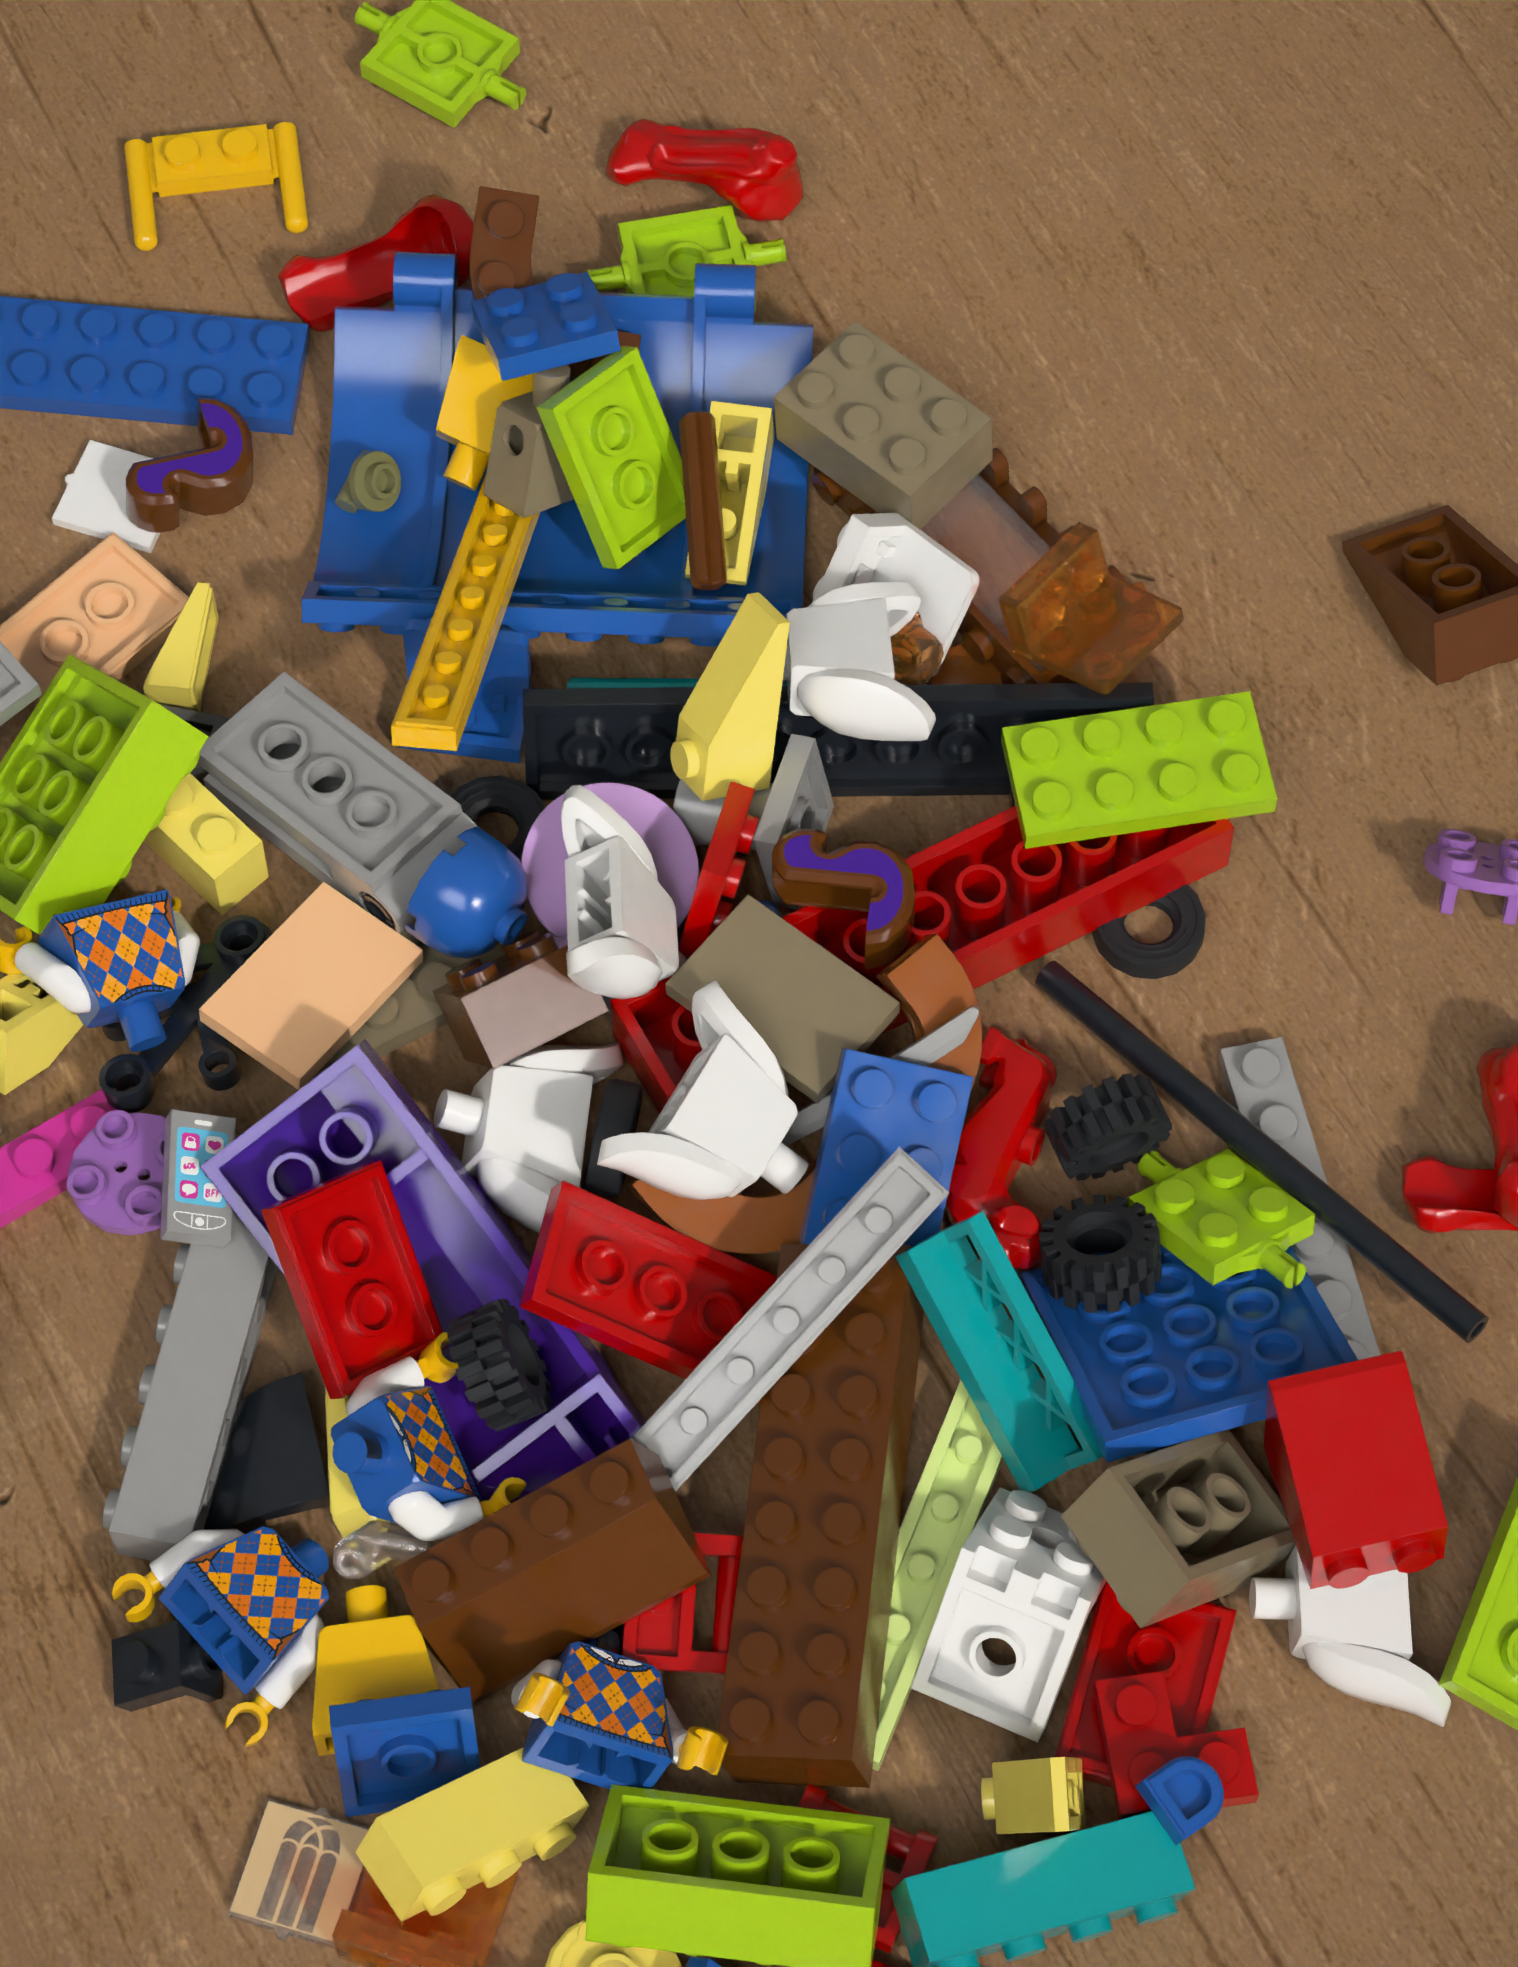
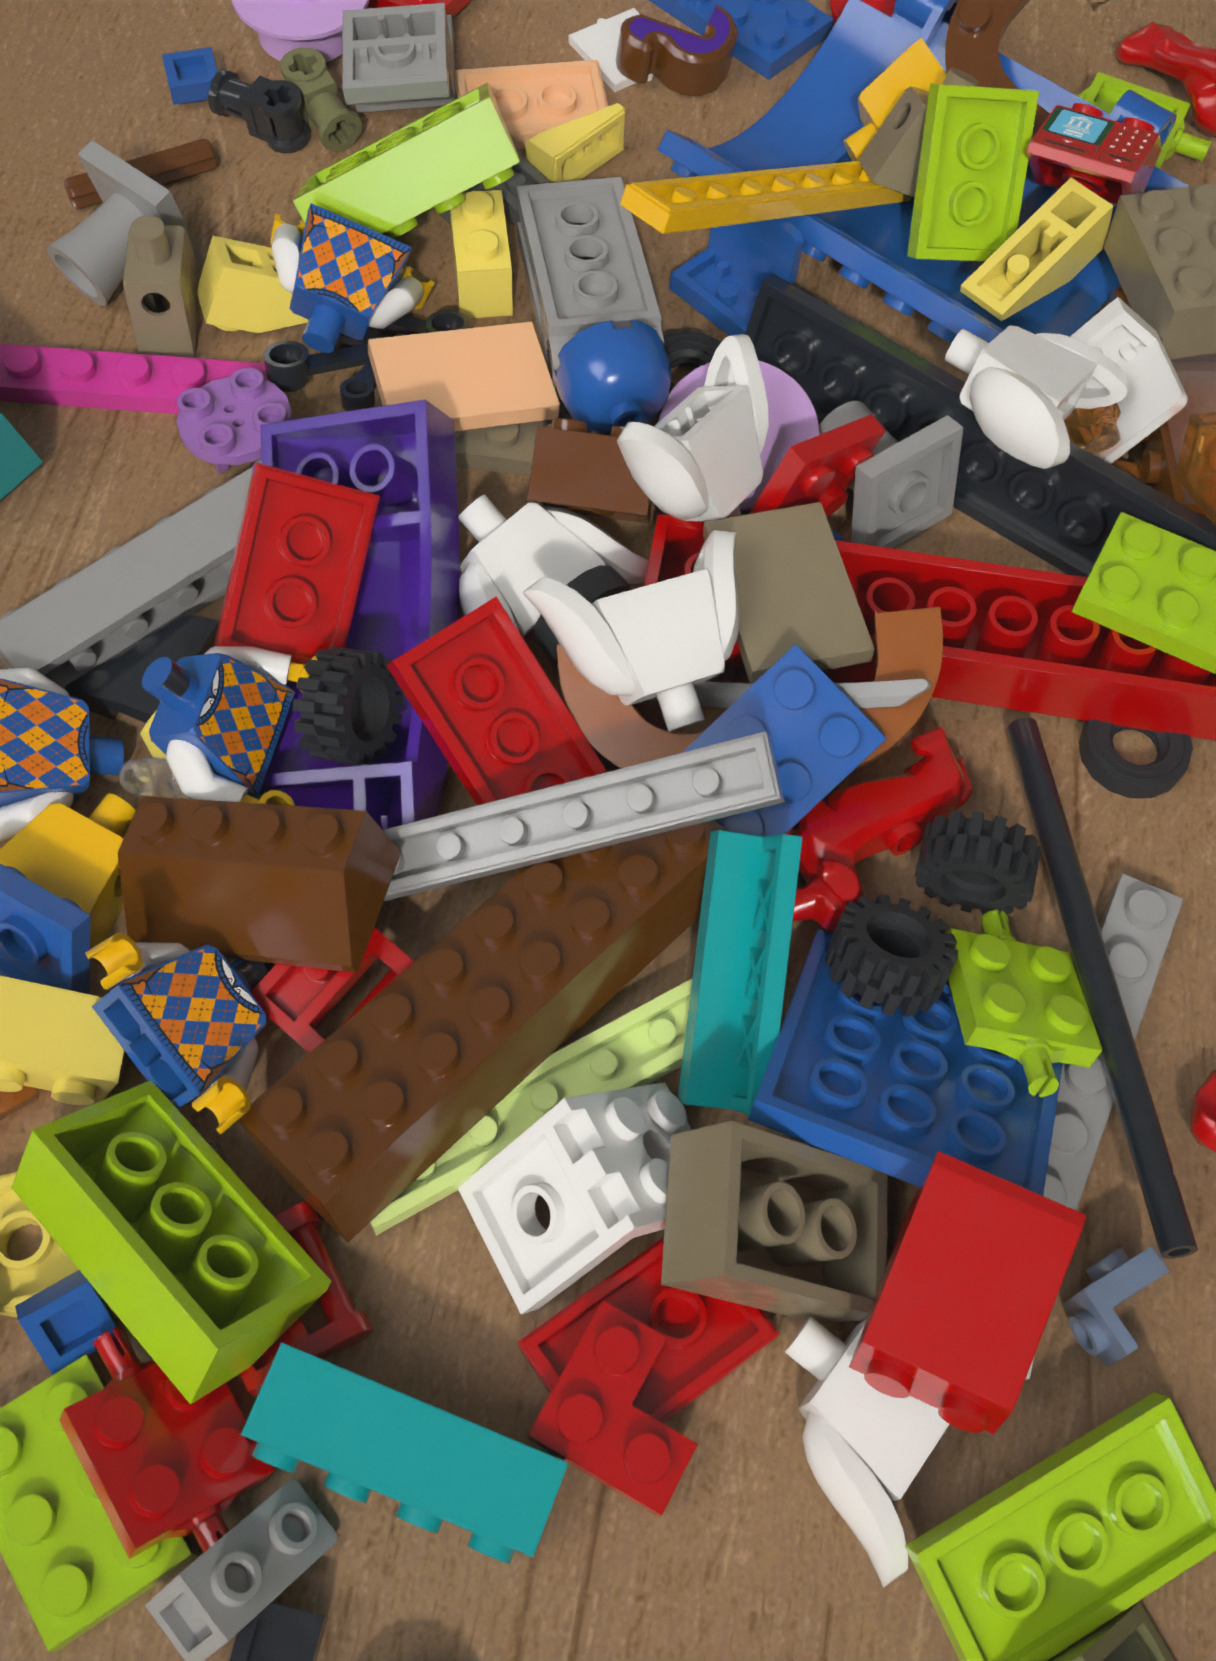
camera: 35 degrees right, 0 degrees up
(190, 1202) = (238, 447): tile -> none
(371, 483) = (790, 119): olive plate -> none
(545, 325) = (970, 48): blue plate -> none
(703, 501) = (1011, 236): reddish brown axle -> none
(715, 358) = (1094, 151): none -> red slope
(734, 709) = (913, 362): light yellow slope -> none
(851, 878) = (909, 537): reddish brown animal -> none
(1035, 1795) = (466, 1367): light yellow slope -> none
(1183, 1796) = (586, 1465): blue tile -> none
(1445, 1422) = (1091, 1309): none -> sand blue bracket

